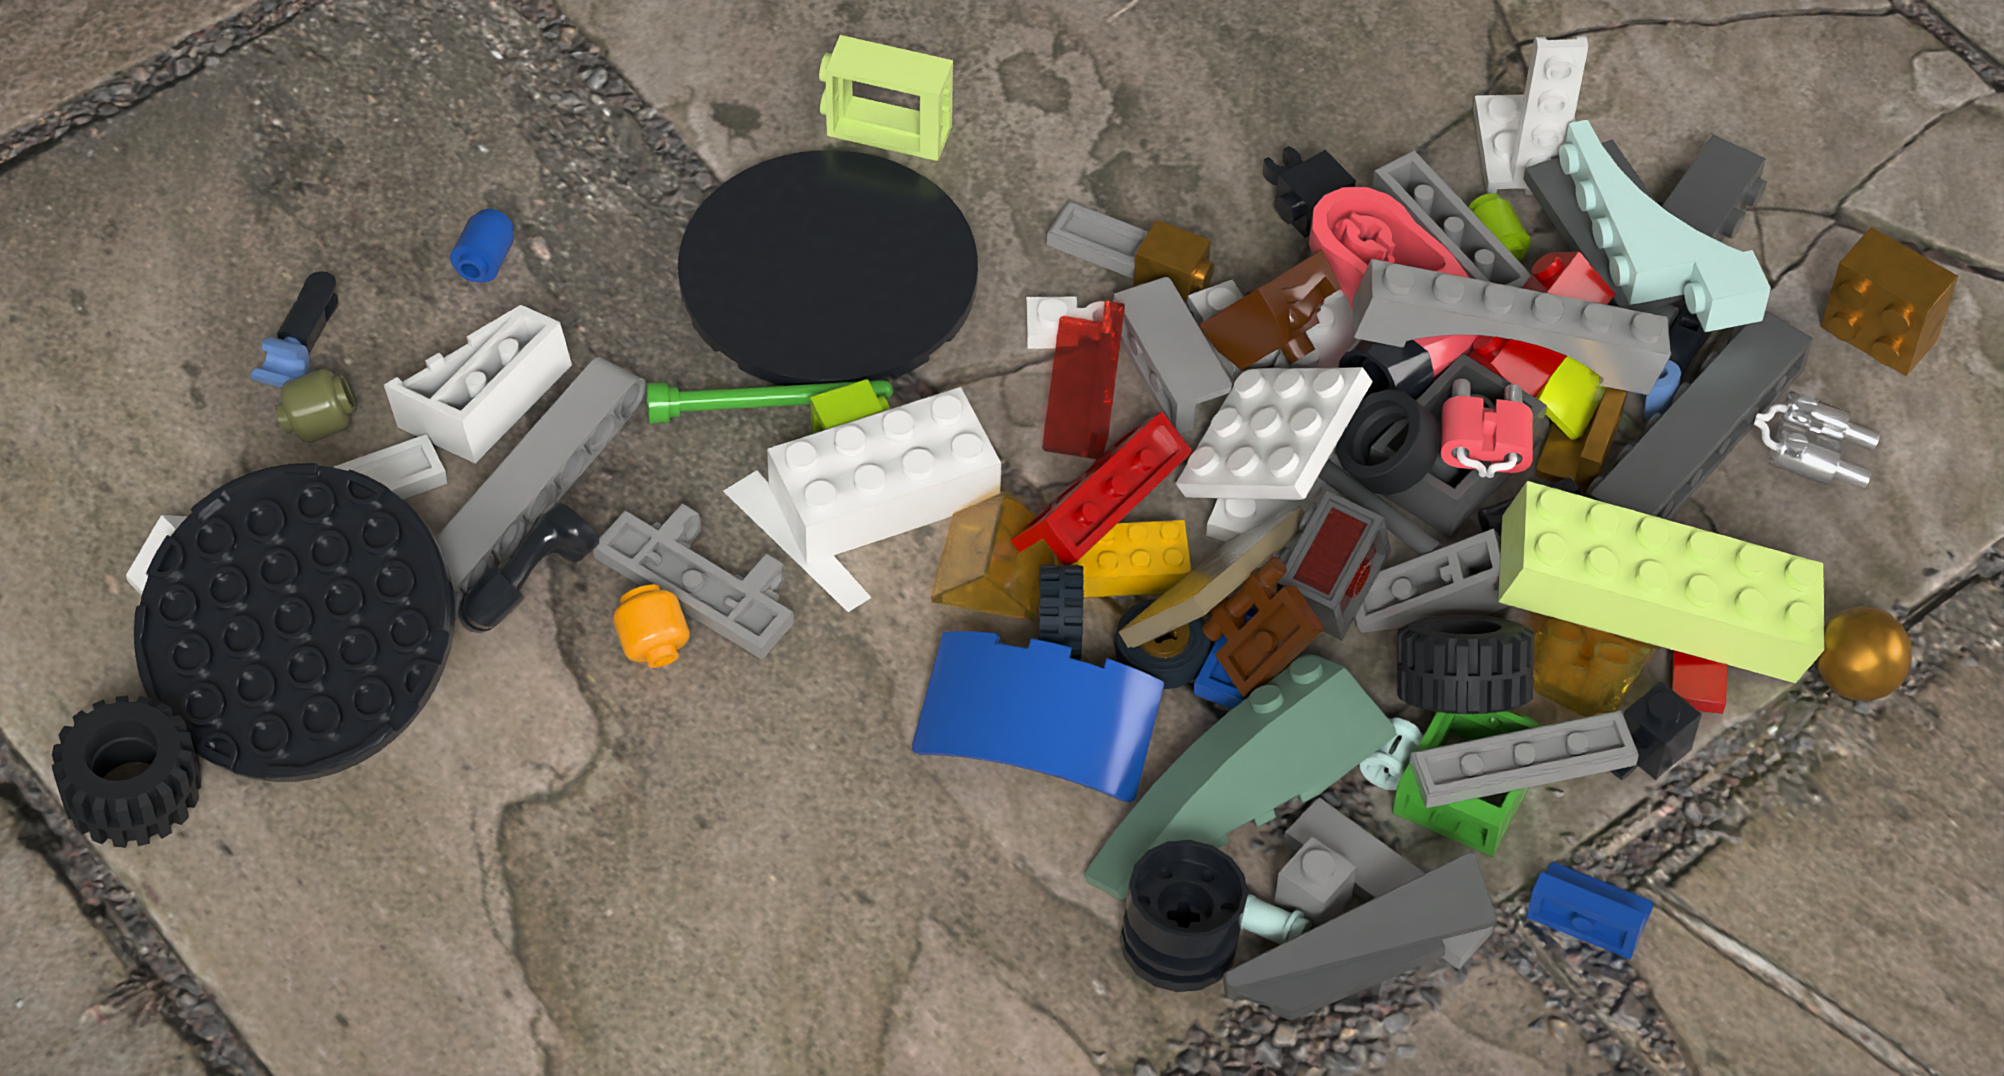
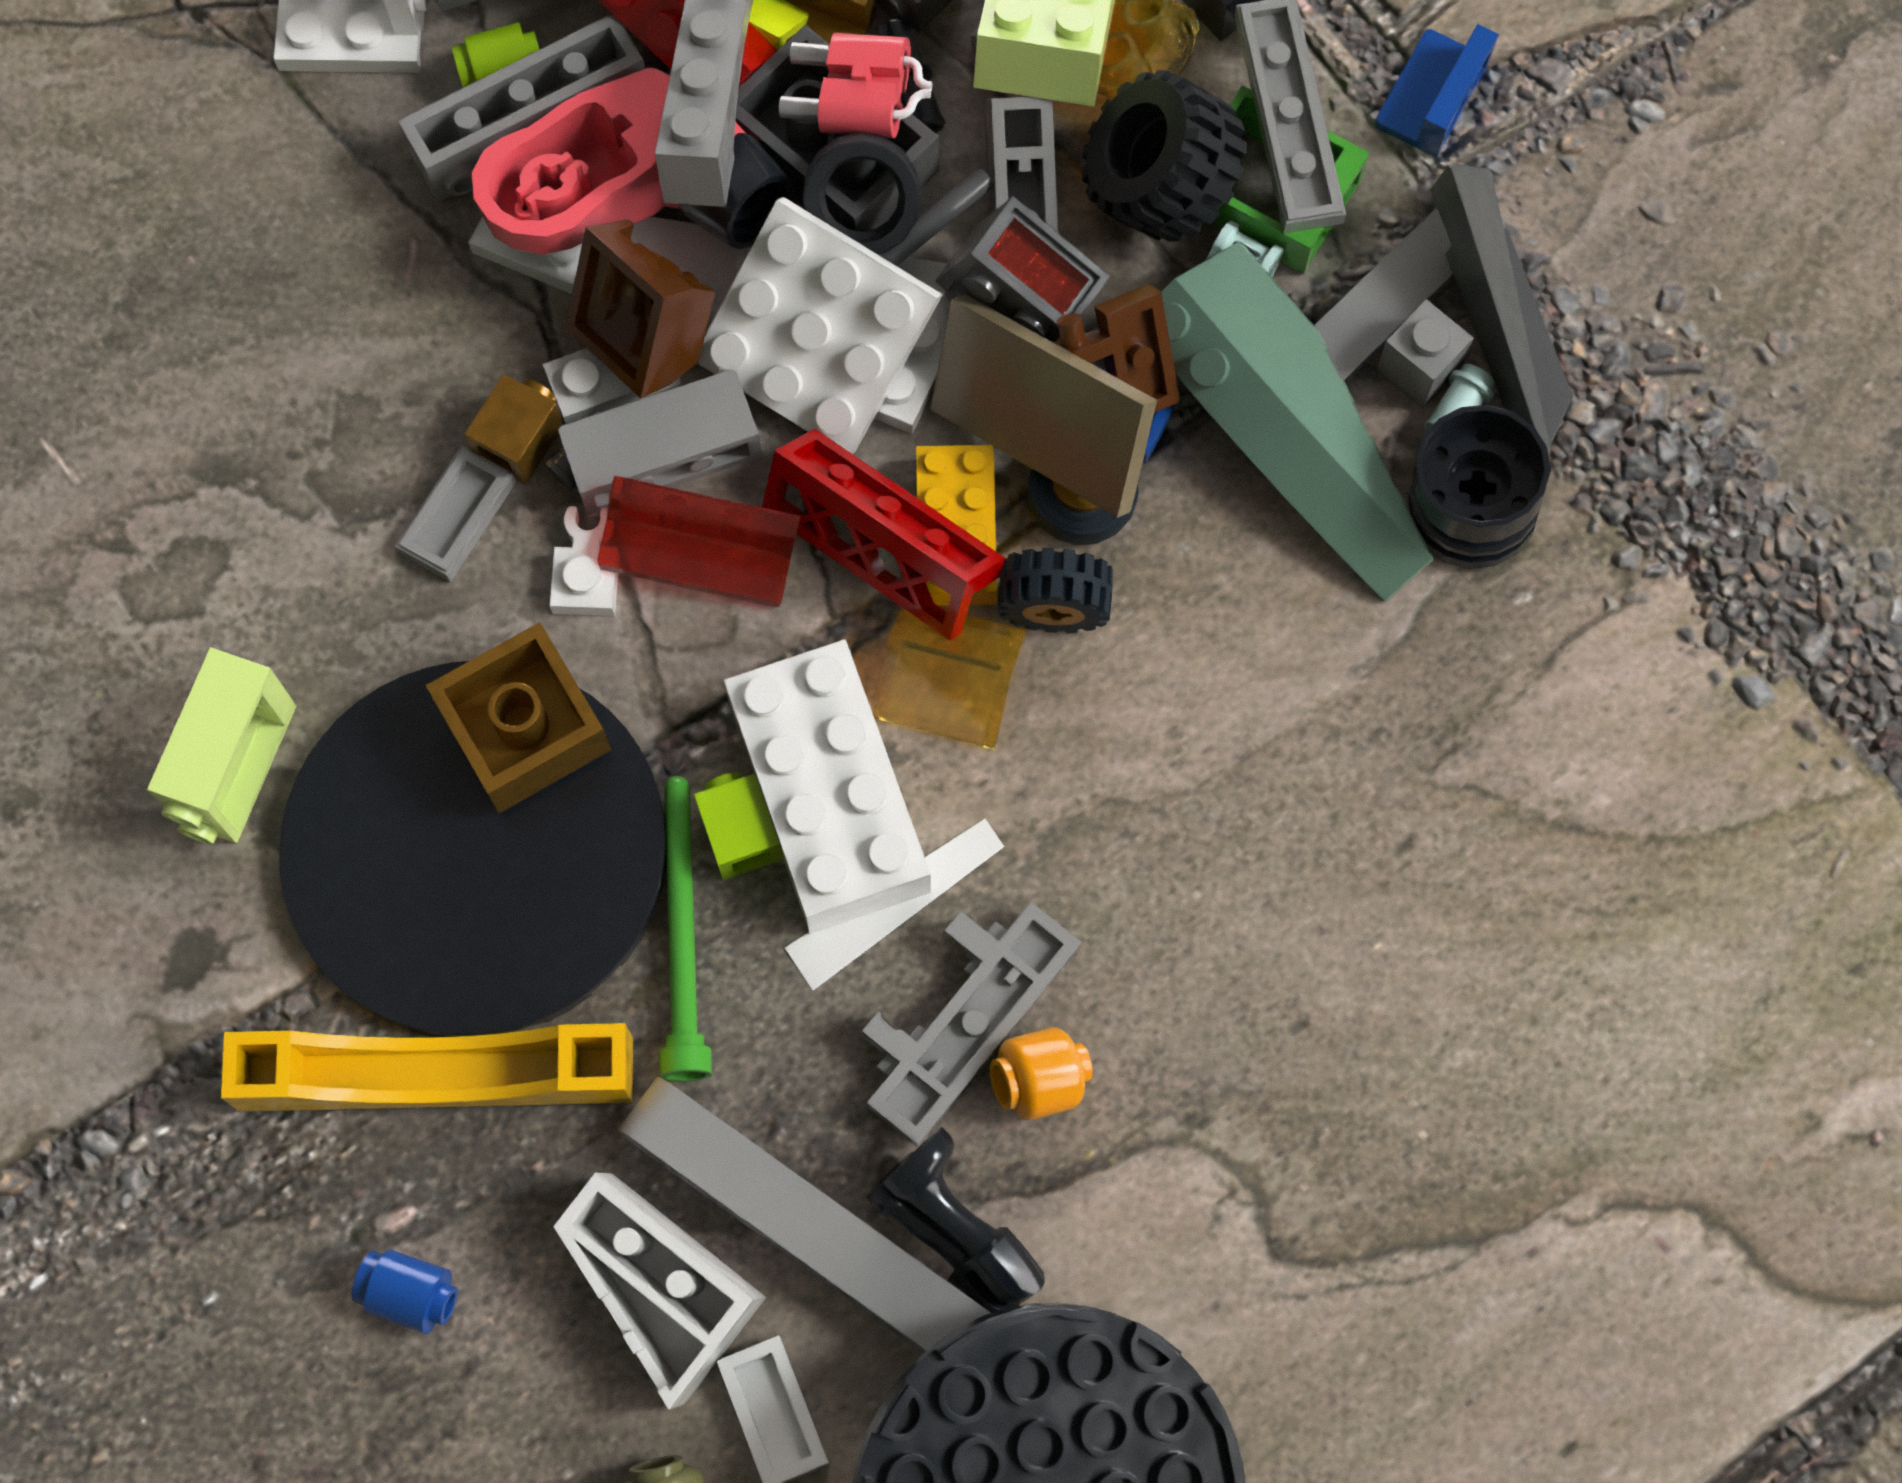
camera: 85 degrees left, 20 degrees up
(647, 242) = (382, 1072): none -> yellow arch
(920, 263) = (519, 717): none -> pearl gold brick
(1039, 711) = (1190, 637): blue panel -> none
(1304, 184) = (413, 257): black brick -> none

